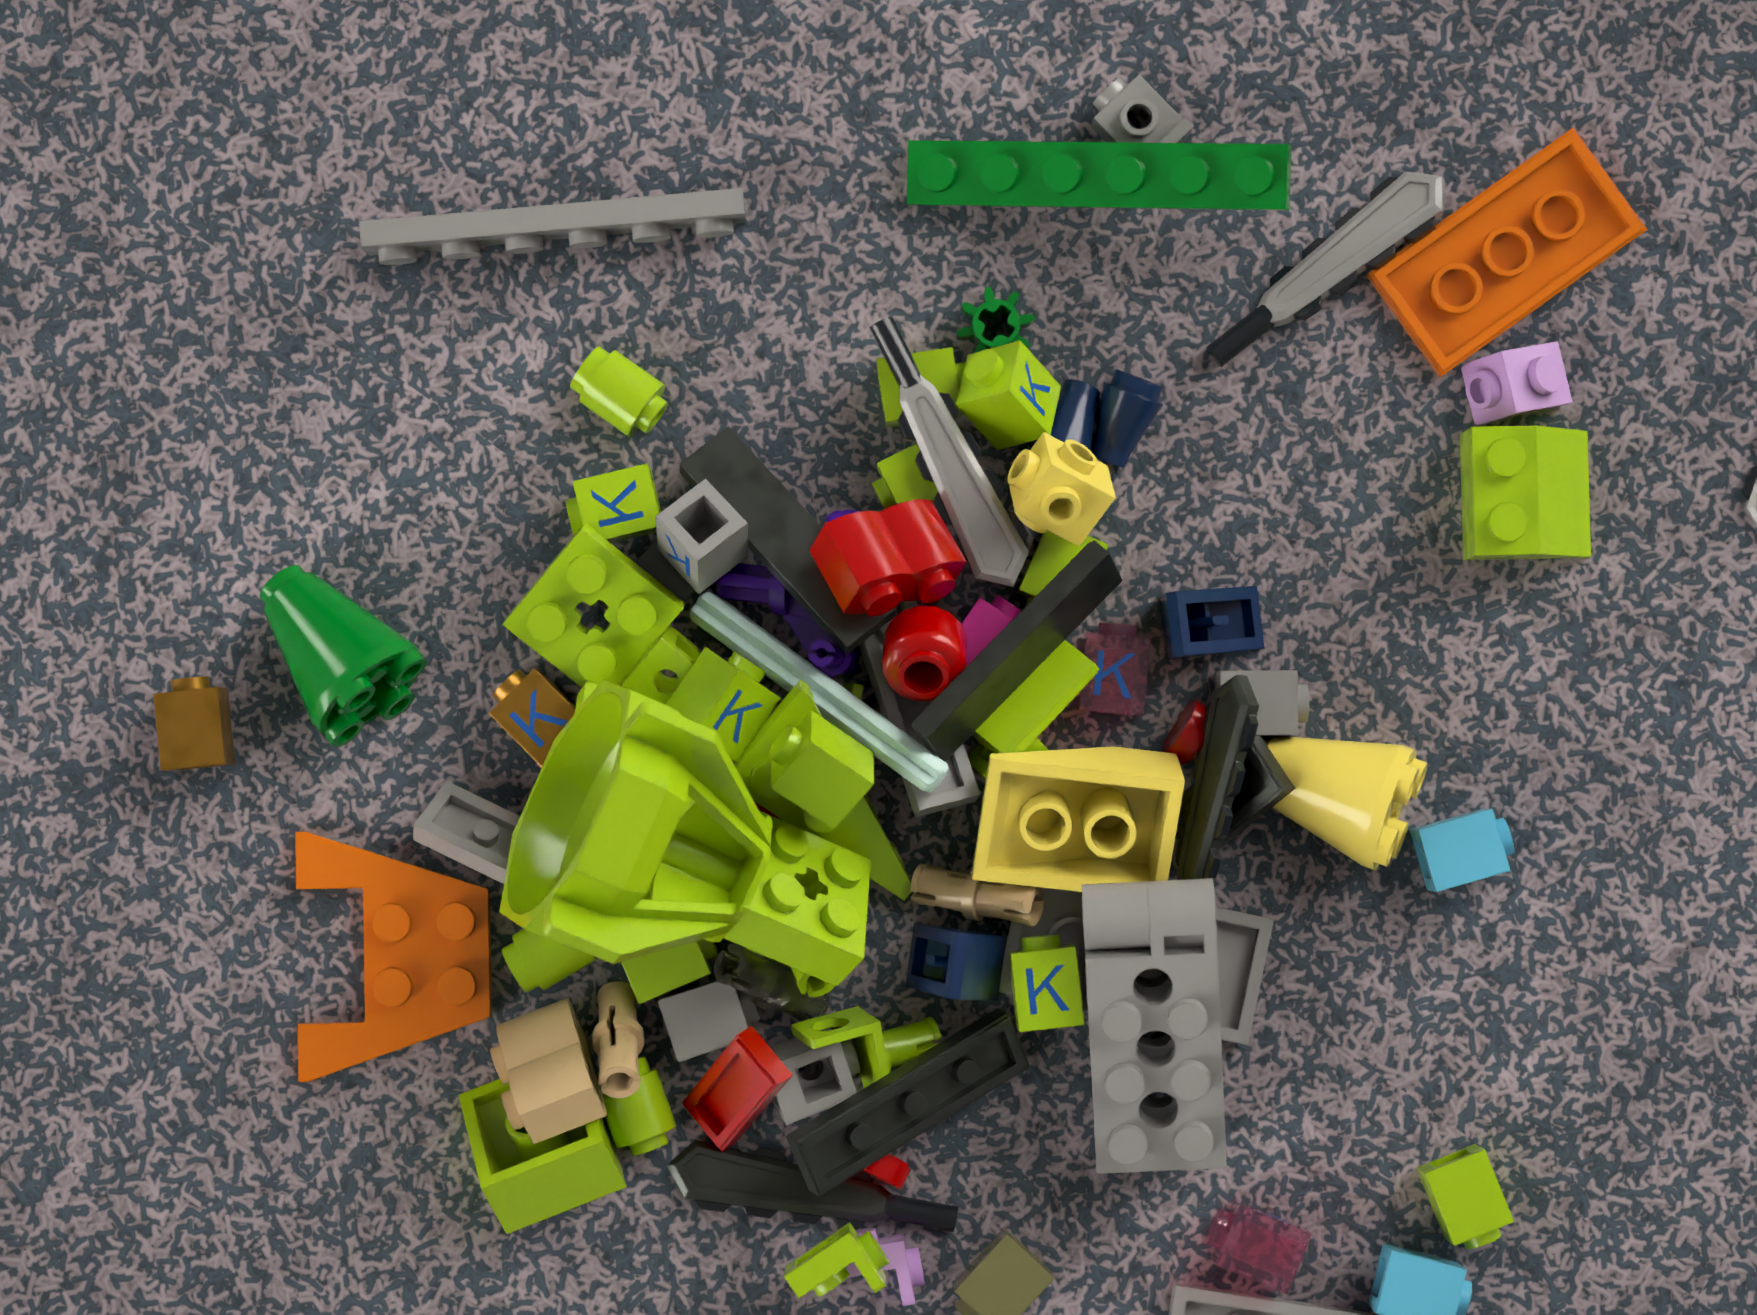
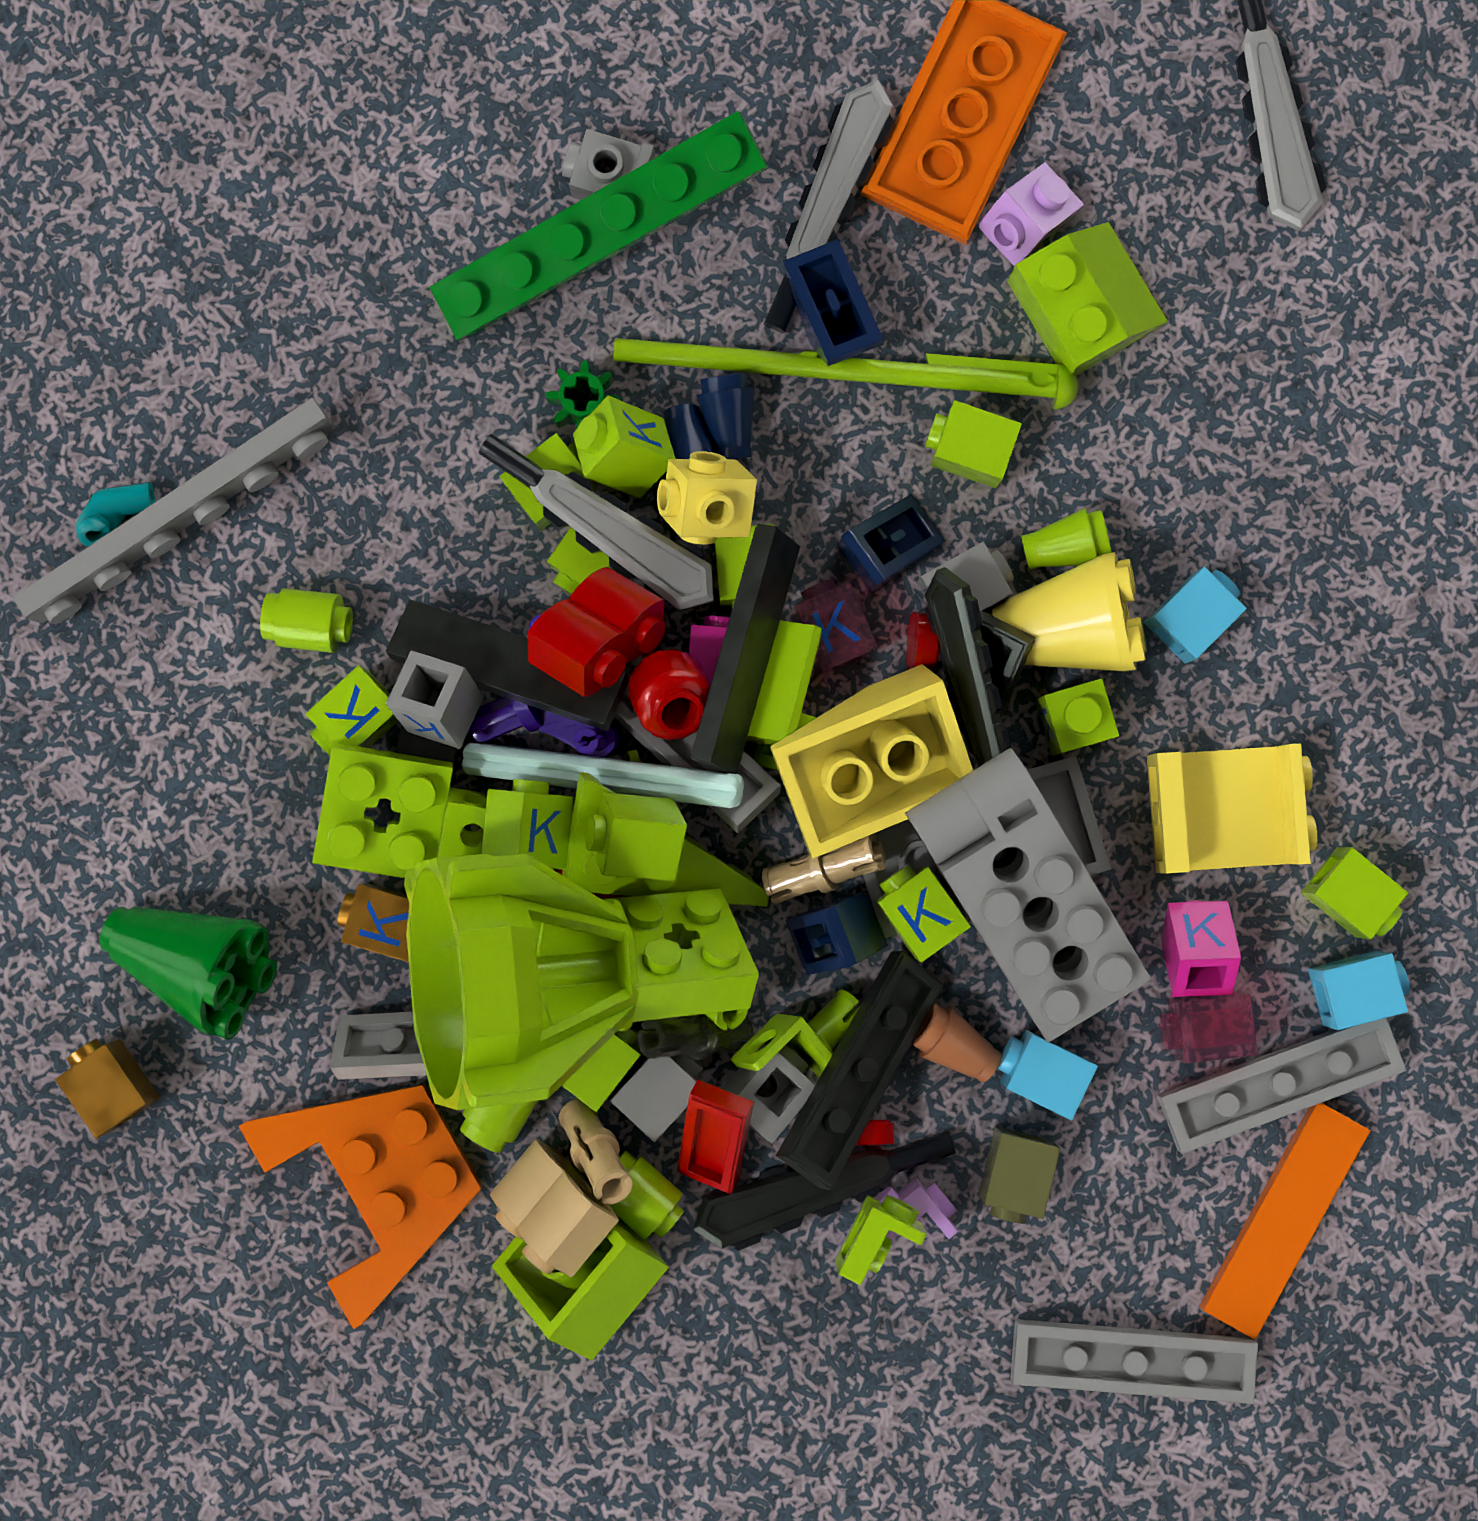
camera: 25 degrees left, 0 degrees up
(491, 183) = (109, 509): none -> teal arm
(1010, 1129) = (956, 1044): none -> nougat cone
(1079, 1202) = (1046, 1073): none -> medium azure brick
(1278, 368) = (831, 303): none -> dark blue slope
(1289, 1166) = (1200, 948): none -> dark pink brick
(1294, 884) = (1076, 717): none -> lime brick
(1339, 571) = (972, 443): none -> lime brick
(1345, 485) = (938, 372): none -> lime bar
(1379, 714) = (1068, 541): none -> lime cone
(1392, 1050) = (1230, 808): none -> light yellow panel

